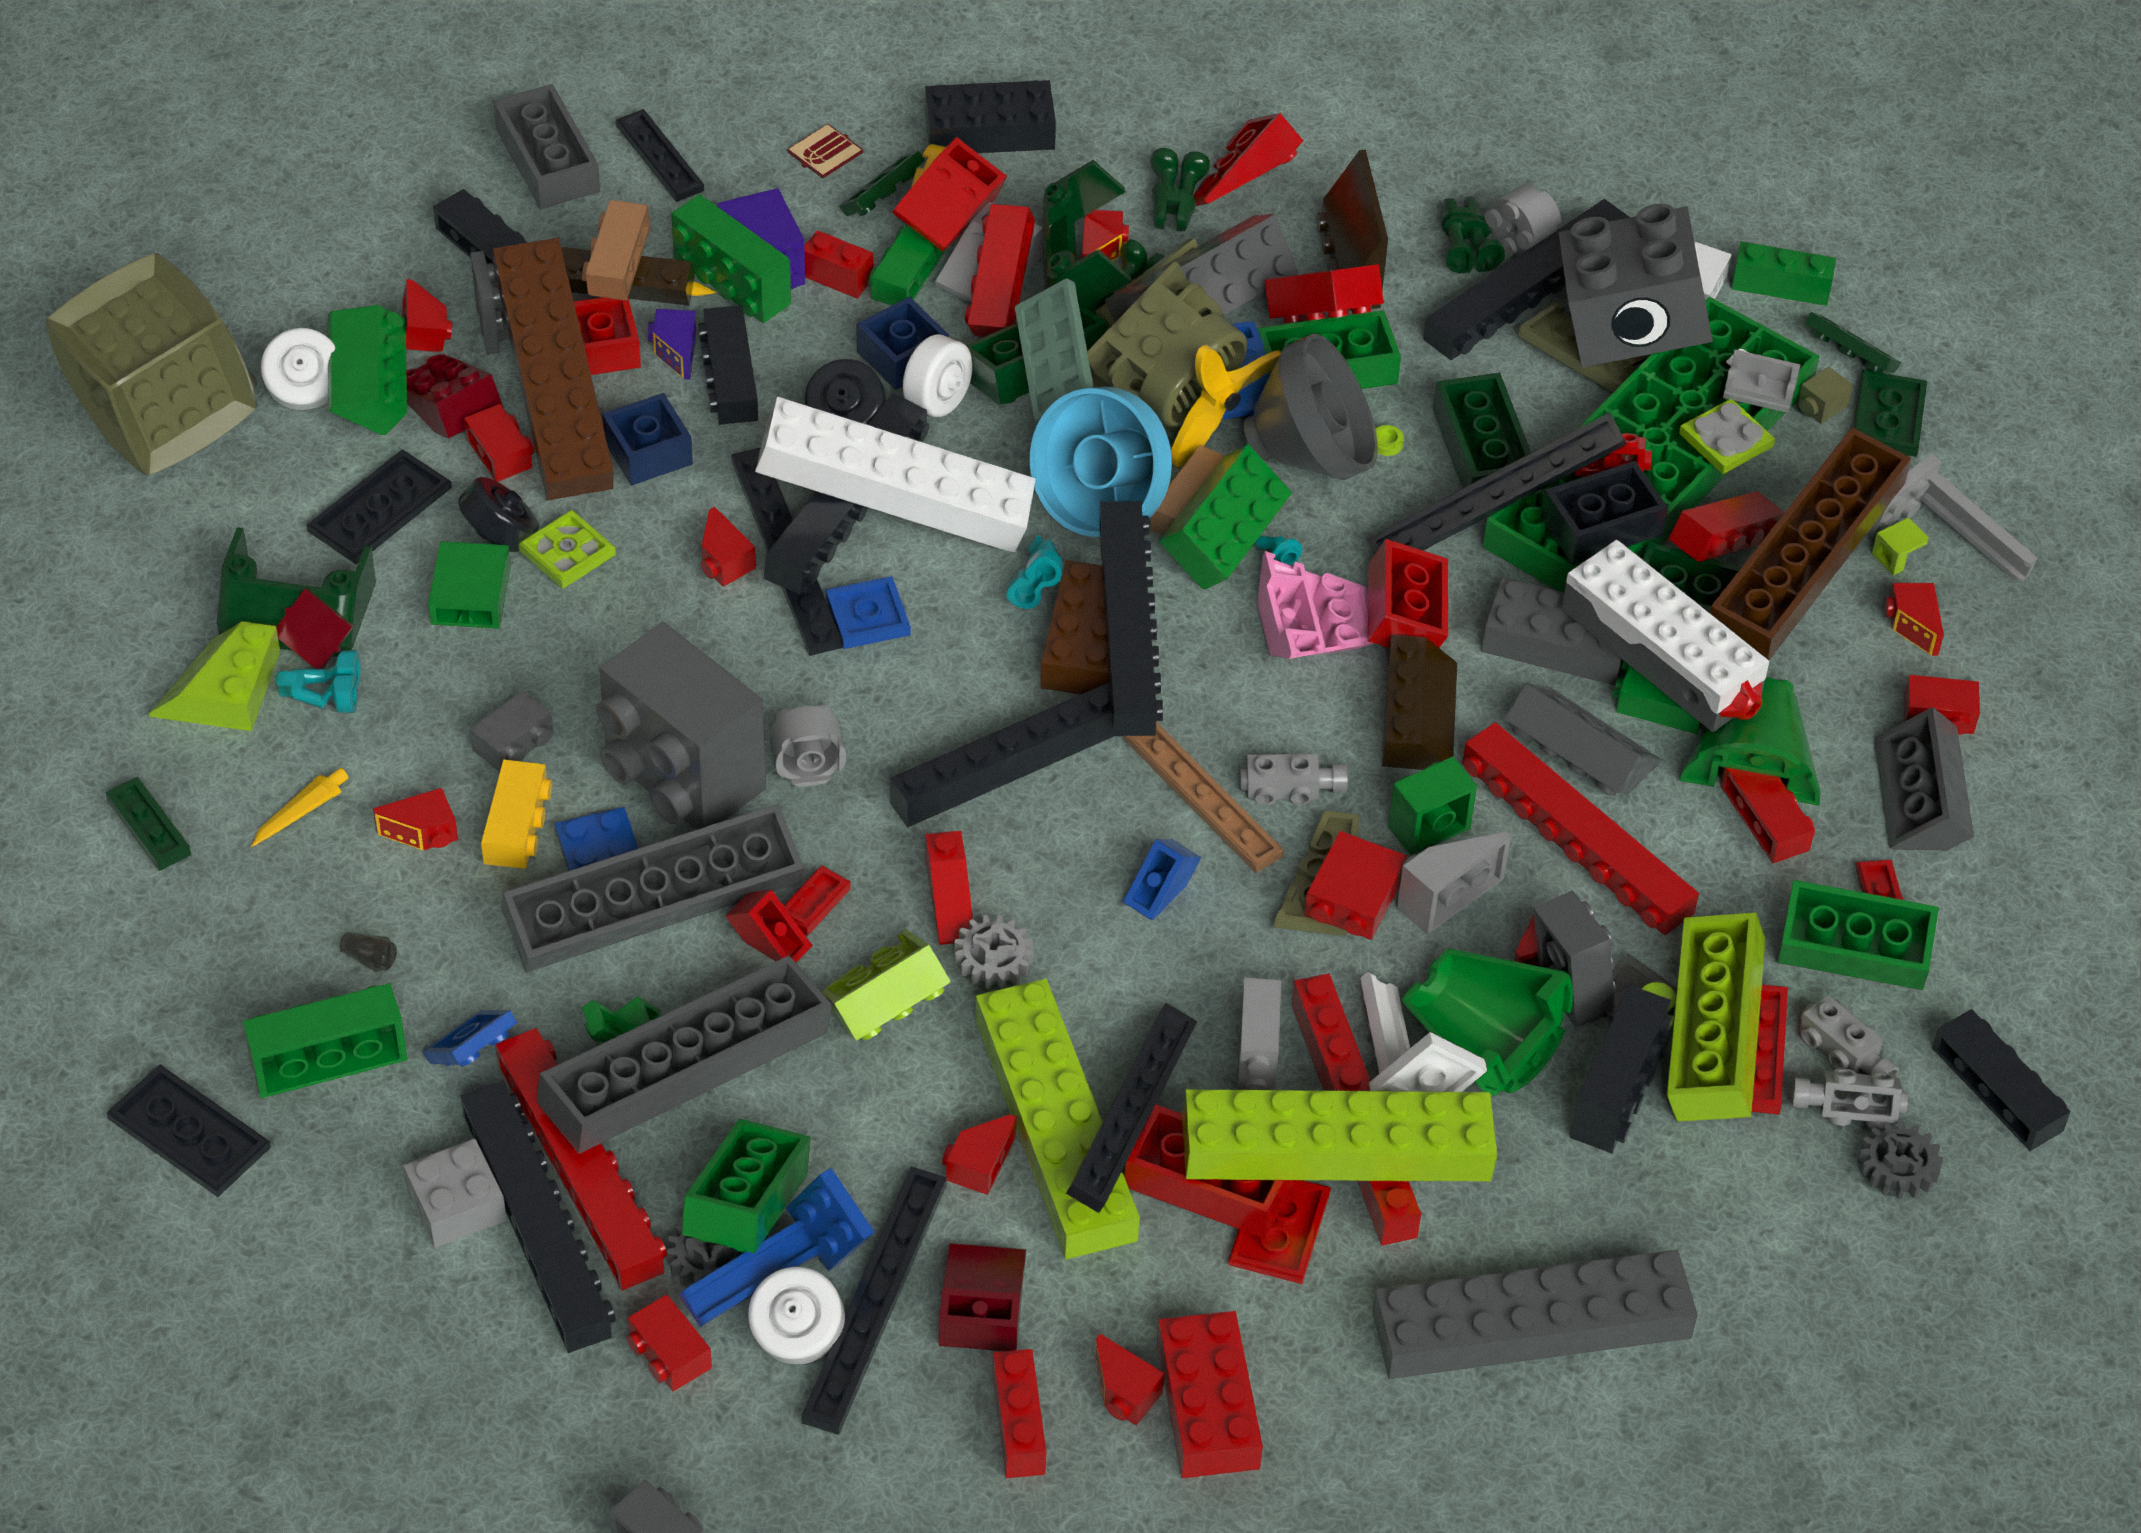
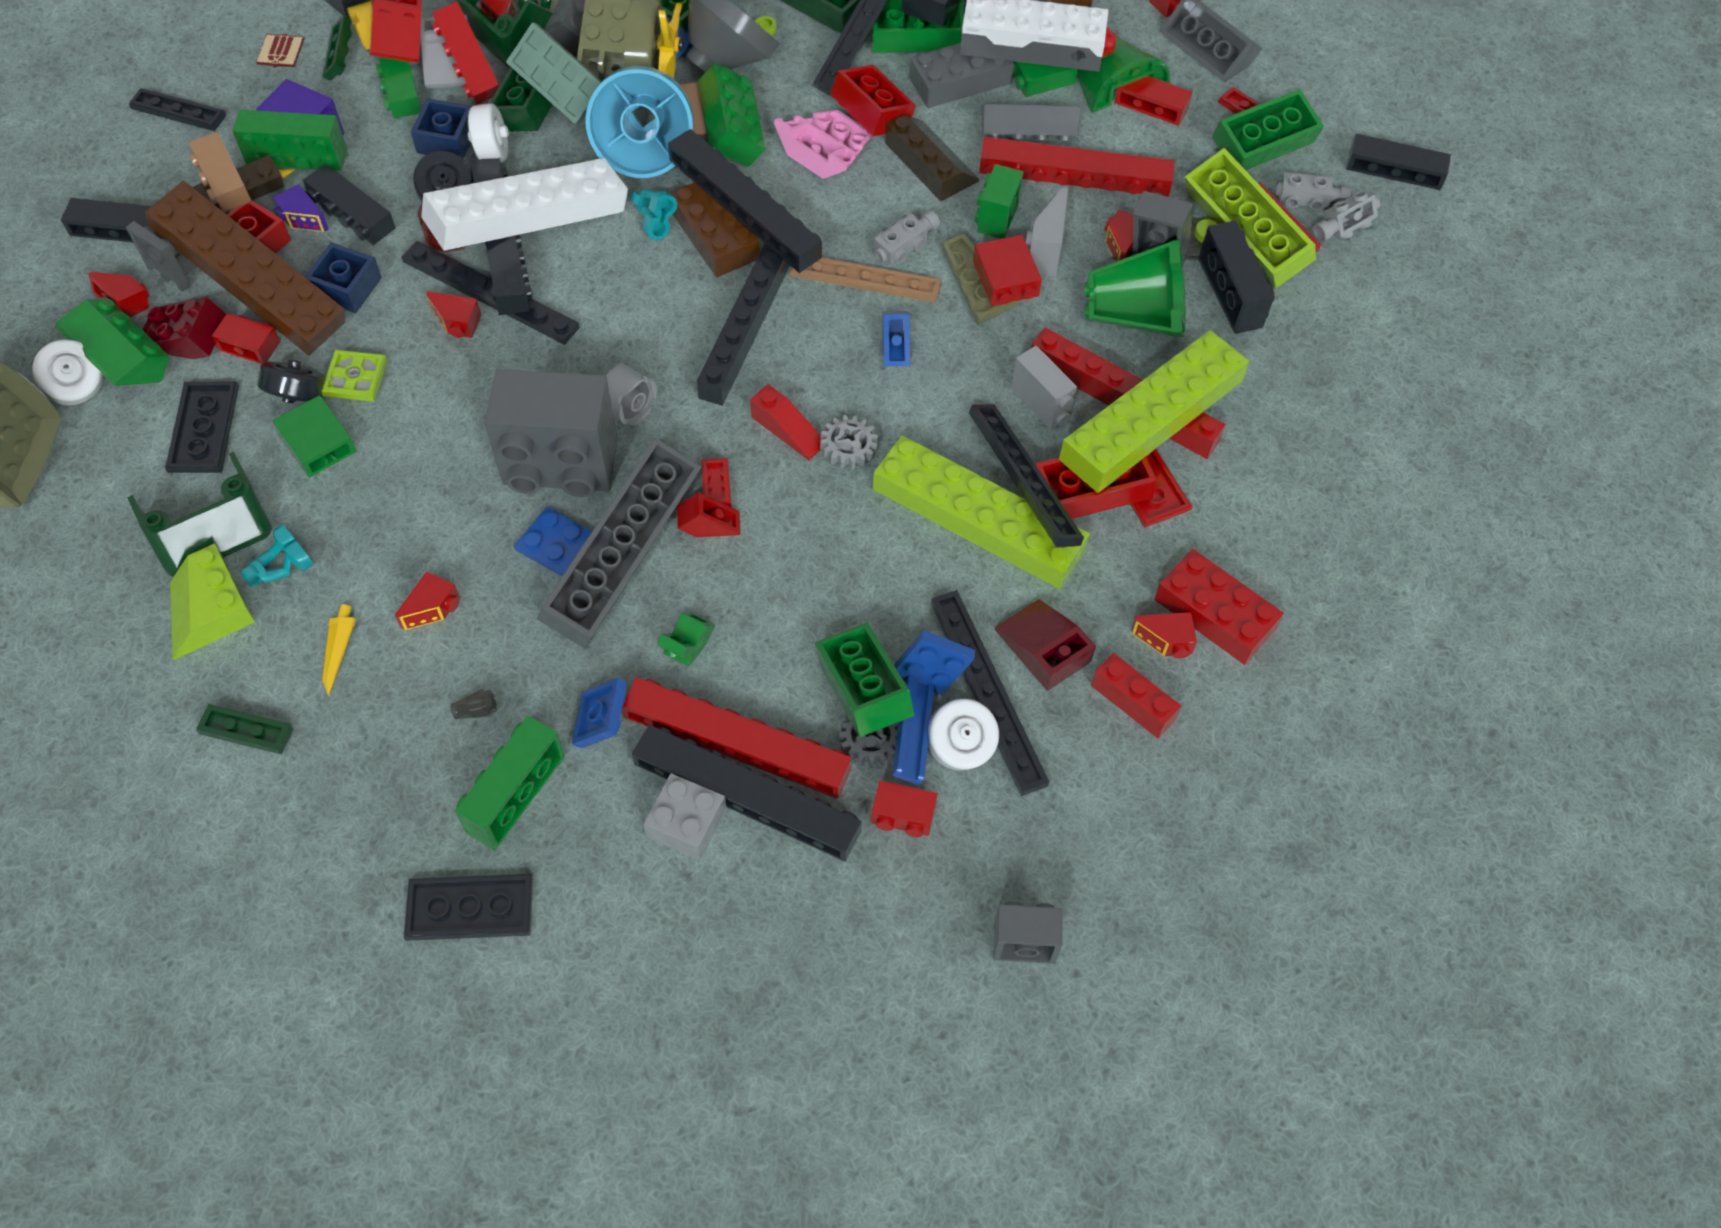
camera: 40 degrees left, 10 degrees up
(313, 629) = (240, 529): dark red piece -> none
(512, 731) = (432, 508): flat silver brick -> none
(516, 814) = (486, 556): yellow brick -> none
(546, 146) = (100, 142): dark grey brick -> none
(683, 1054) = (744, 630): dark grey brick -> none
(837, 264) = (359, 107): red brick -> none
(868, 612) = (577, 296): blue plate -> none
(887, 987) = (811, 502): lime wedge -> none
(980, 1153) = (961, 563): red slope -> none
(1281, 547) = (772, 114): teal plate -> none
(1428, 1065) = (1150, 355): white bracket -> none
(1534, 1314) = (1323, 440): dark grey brick -> none
(1900, 1160) = (1398, 234): dark grey gear -> none

